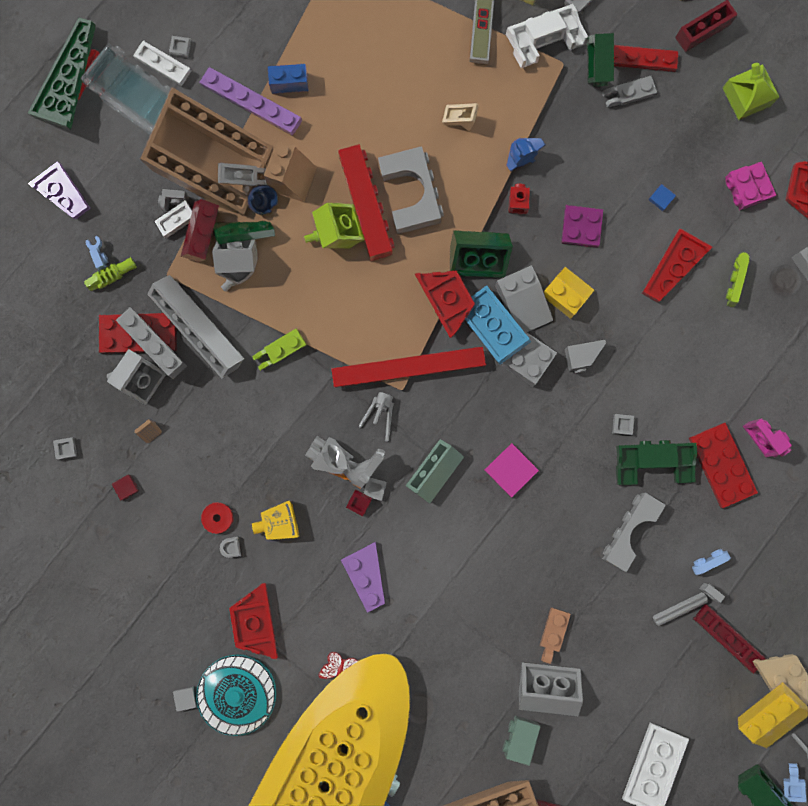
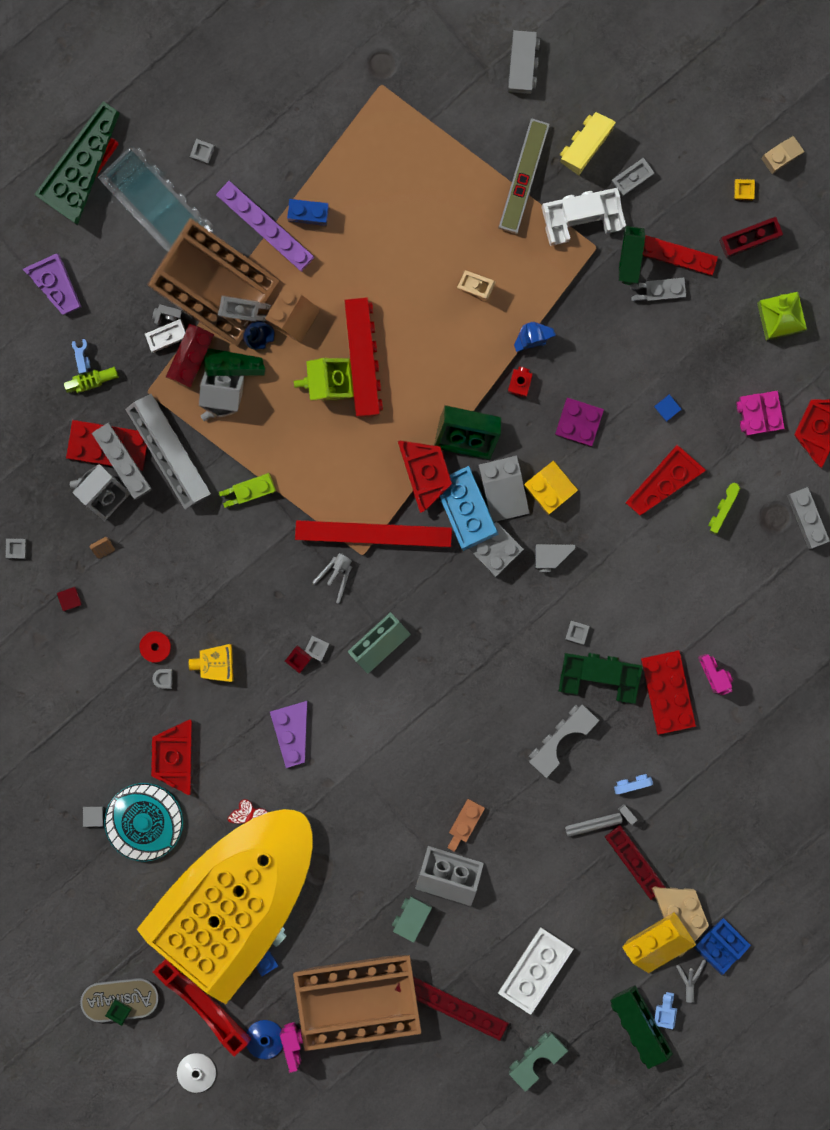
camera: 15 degrees right, 5 degrees up
(162, 63) = (181, 167): white plate -> none
(334, 459) = (282, 612): light grey hips -> none
(413, 164) = (423, 378): light grey arch -> none
(511, 470) = (456, 656): dark pink tile -> none

